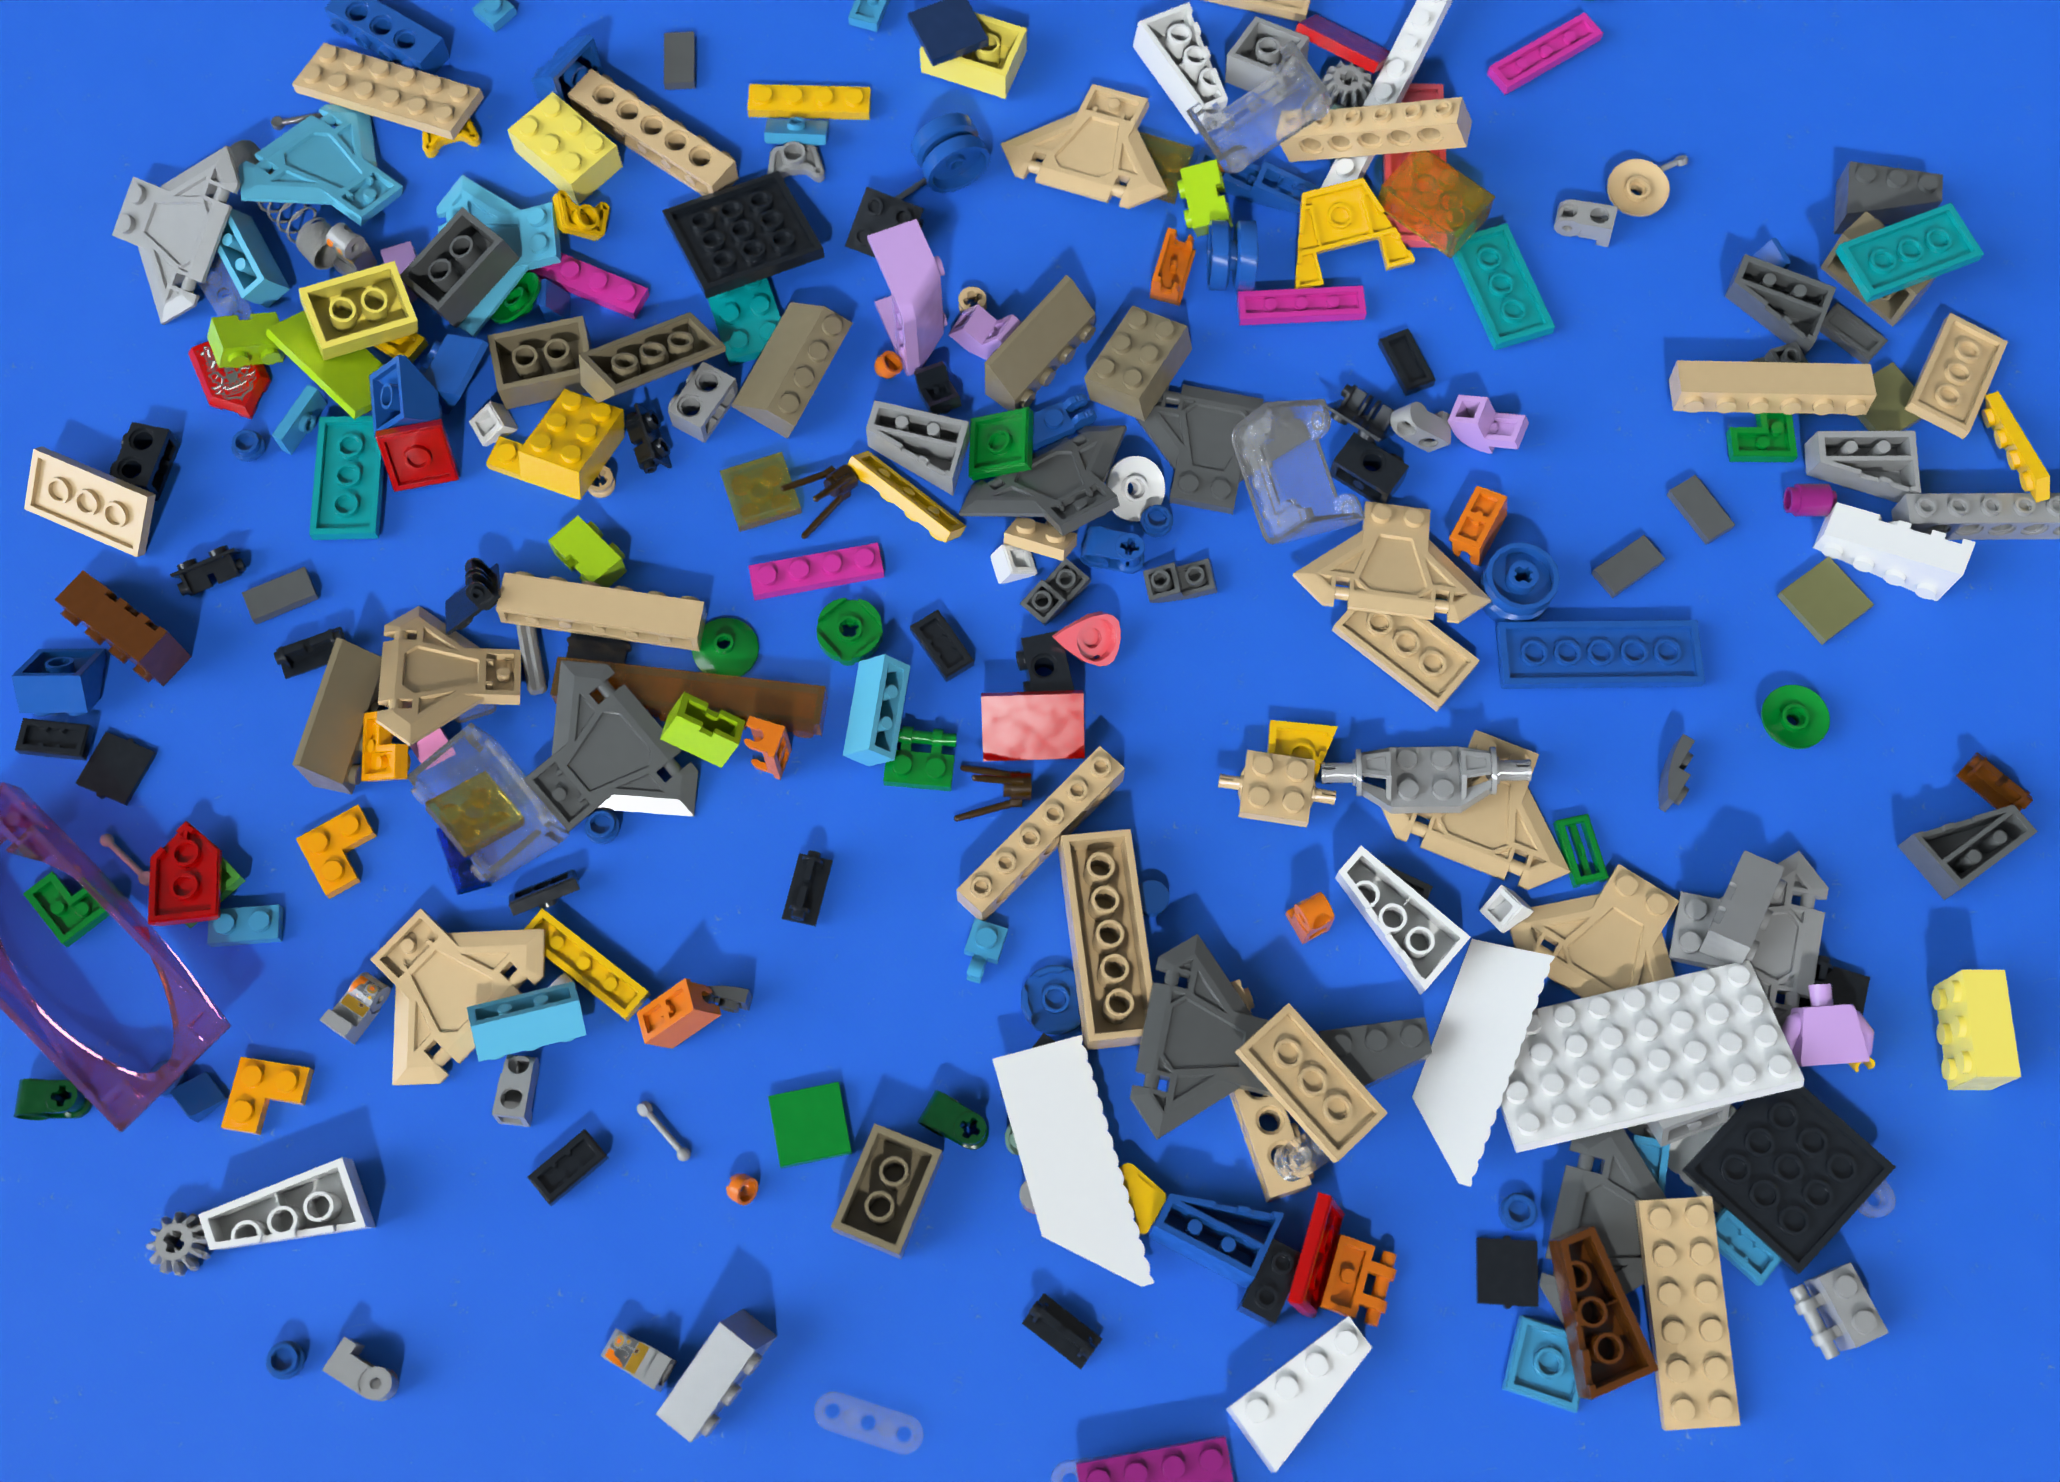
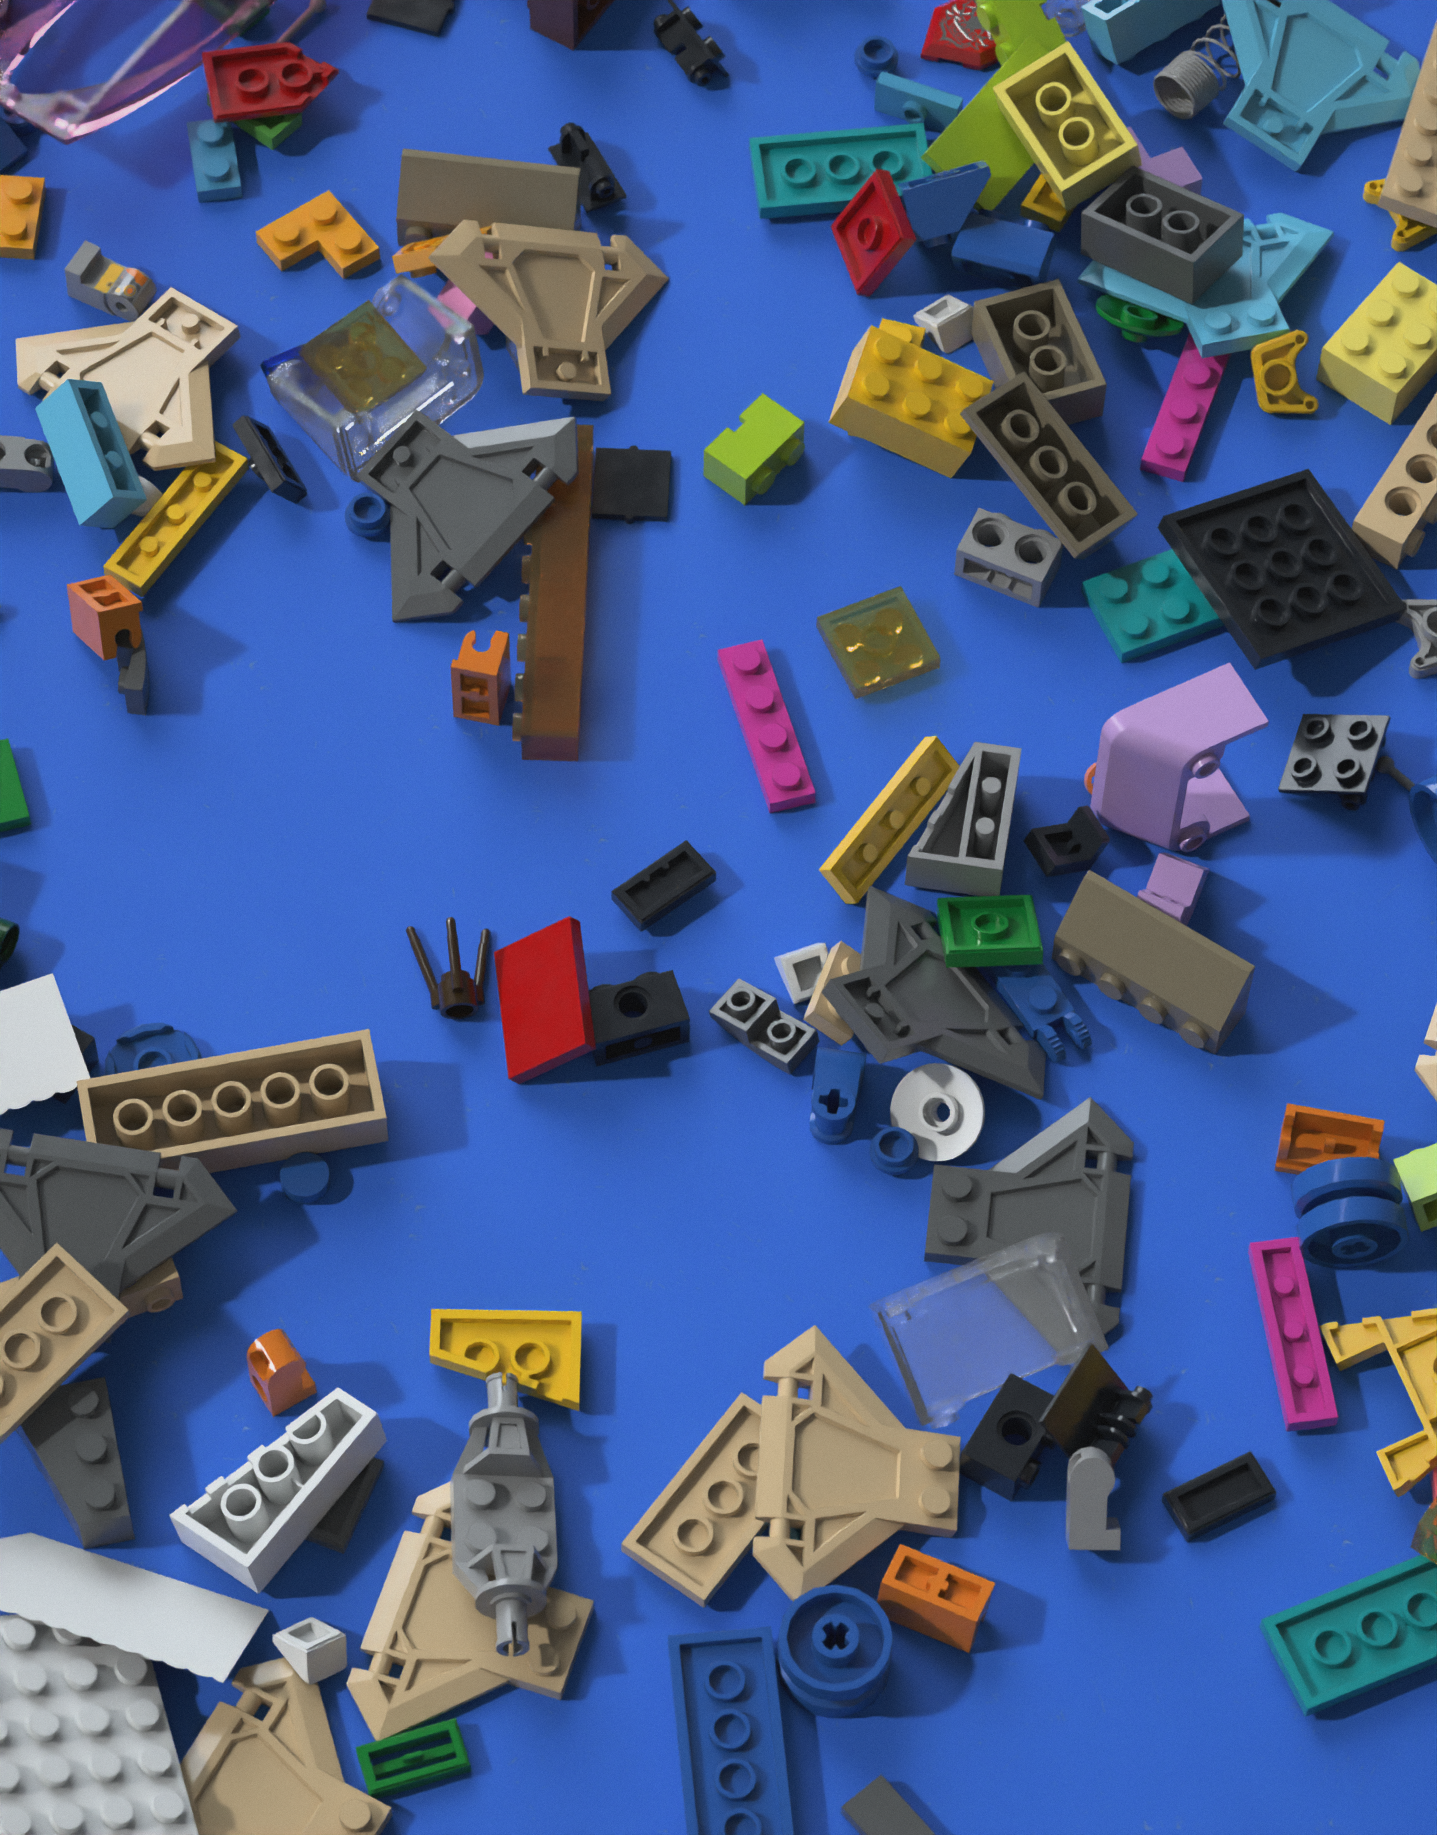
camera: 85 degrees right, 10 degrees down
(279, 123) = (1384, 16): dark grey hinge -> none
(280, 595) = (664, 126): dark grey tile -> none
(350, 248) = (1179, 115): light grey leg -> none
(479, 594) = (677, 319): black hinge -> none
(531, 659) = (643, 396): light grey axle -> none
(554, 302) = (1144, 363): blue slope -> none
(602, 611) = (666, 471): tan brick -> none
(603, 490) = (874, 466): tan bush -> none
(644, 427) = (945, 504): black hinge -> none
(702, 730) = (500, 595): lime brick -> none
(730, 661) = (644, 646): green dish -> none
(791, 366) = (1071, 653): dark tan slope -> none
(807, 888) = (293, 757): black hinge -> none
(837, 483) = (900, 732): dark brown plant -> none
(851, 612) = (676, 795): green plate -> none
(876, 710) = (550, 805): medium azure brick -> none
(922, 769) = (477, 876): green plate -> none
(971, 293) = (1233, 872): tan bush -> none
(984, 945) = (225, 977): dark azure plate -> none
(1040, 834) = (400, 1032): tan brick -> none
(1092, 636) = (686, 1062): coral piece -> none
(1138, 363) = (1145, 1099): dark tan brick -> none
(1179, 583) = (799, 1189): dark grey slope -> none
(1277, 788) = (469, 1317): tan plate -> none
(1482, 428) = (1108, 1597): lavender brick -> none

